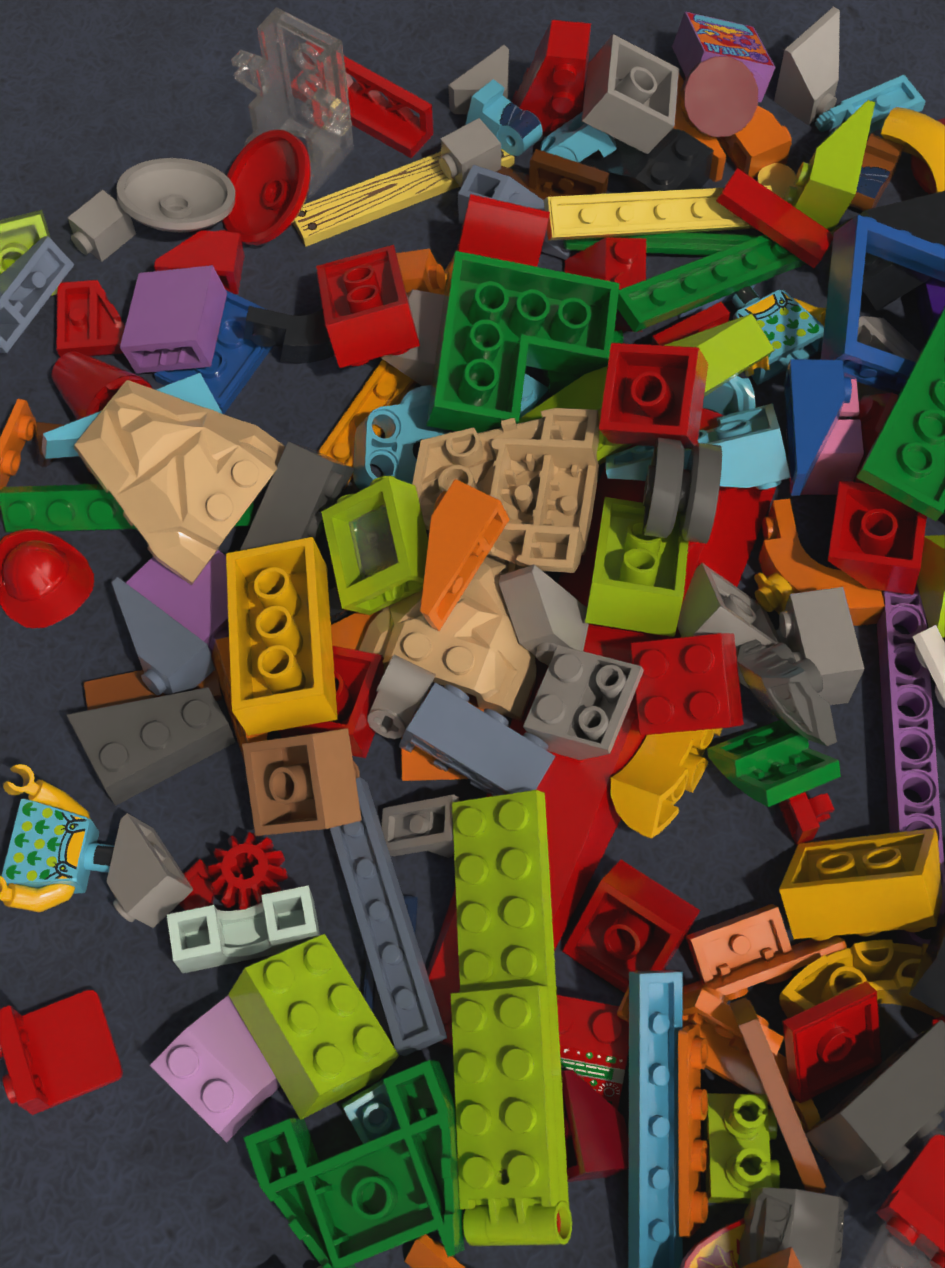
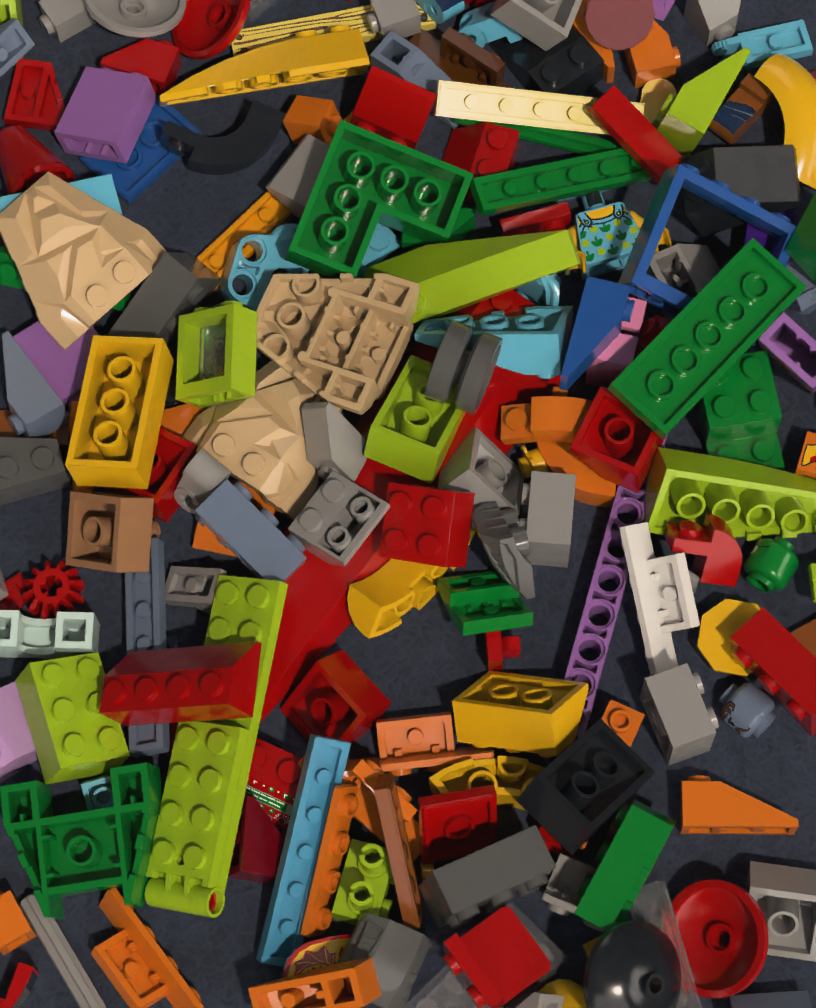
camera: 15 degrees right, 5 degrees up
(366, 307) = (263, 143): red slope -> none
(370, 222) = (277, 65): none -> yellow wedge
(449, 948) = (183, 684): none -> red slope
(460, 537) = (276, 368): orange slope -> none
(653, 394) = (463, 283): red brick -> none
(782, 536) = (543, 419): none -> orange arch

